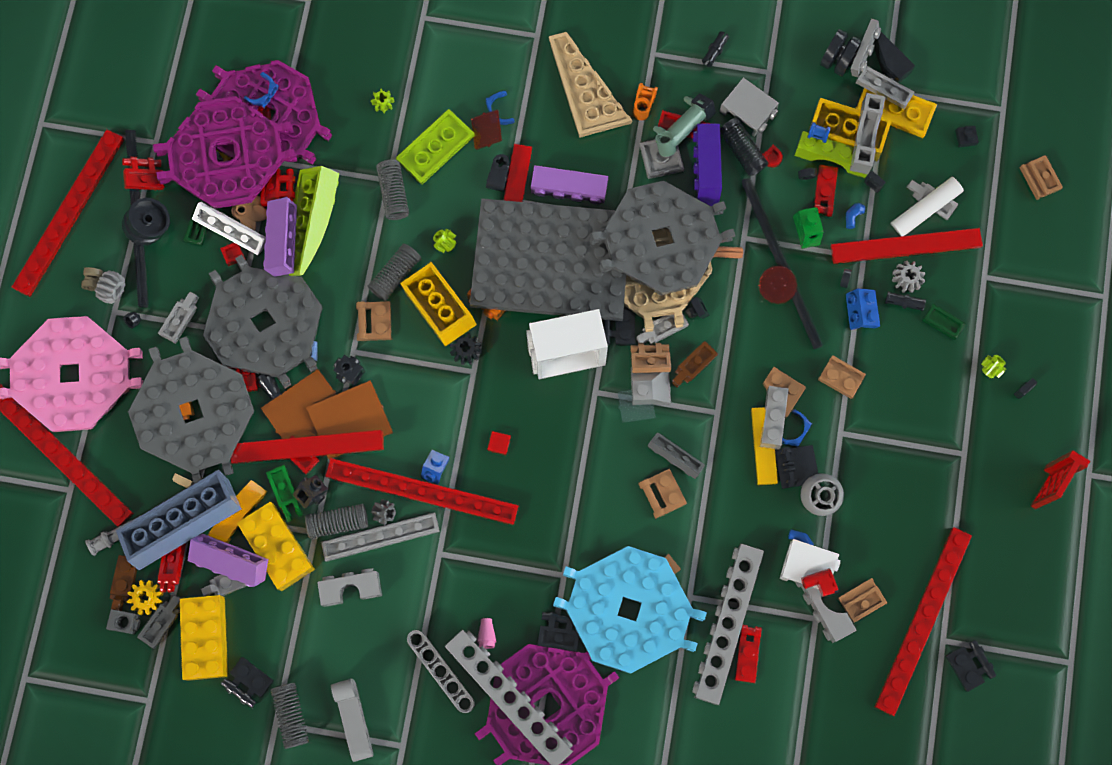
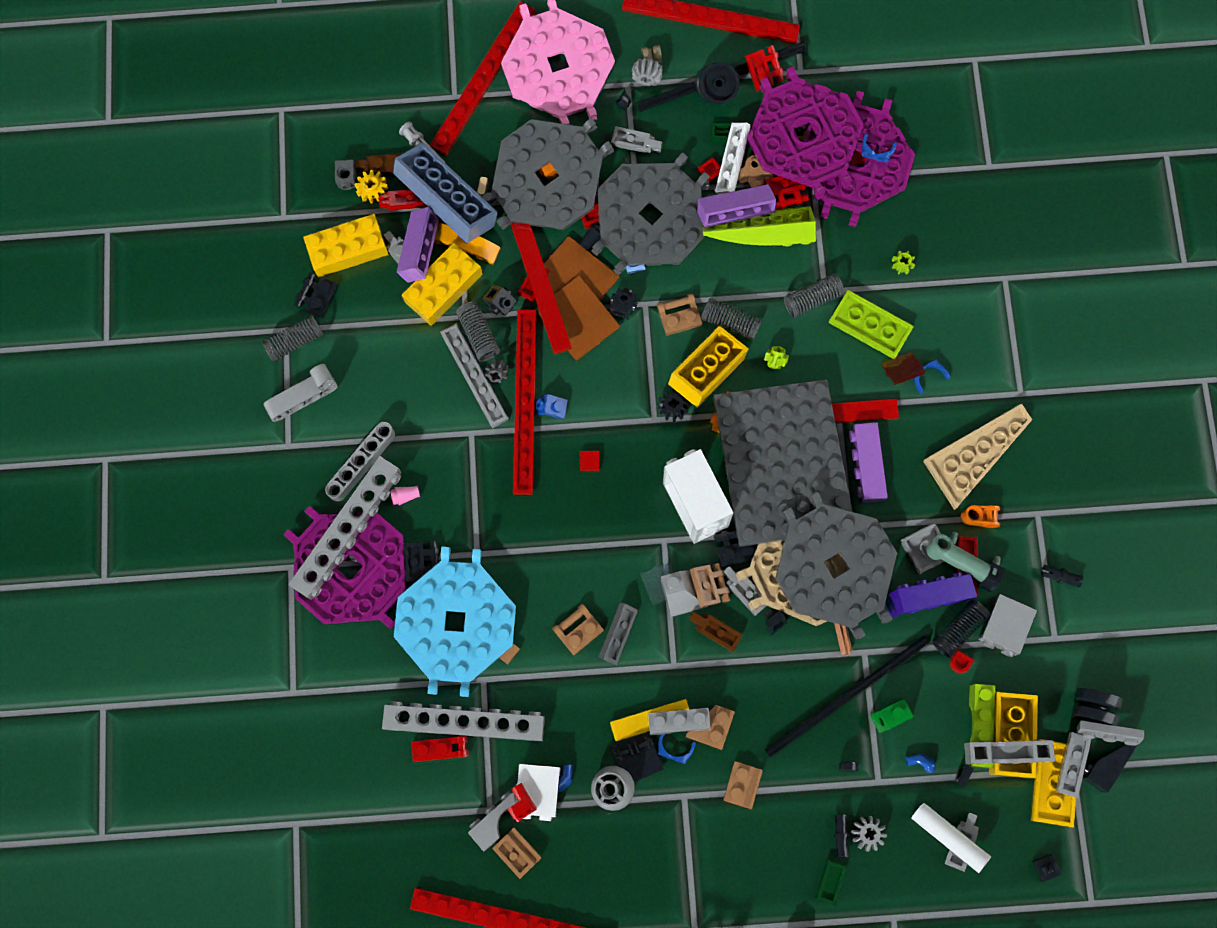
camera: 80 degrees right, 0 degrees up
(160, 622) = (352, 205): dark grey hinge -> none
(283, 490) = (496, 276): green hinge -> none
(332, 589) = (425, 374): light grey arch -> none
(498, 175) = (858, 391): black piece -> none
(778, 284) = (822, 697): clear red tile -> none
(807, 174) = (951, 702): black tile -> none
(818, 132) = (996, 700): blue bush -> none
(825, 189) = (940, 725): red plate -> none
(862, 309) = (820, 792): blue bracket -> none
(906, 245) = (904, 826): red tile -> none

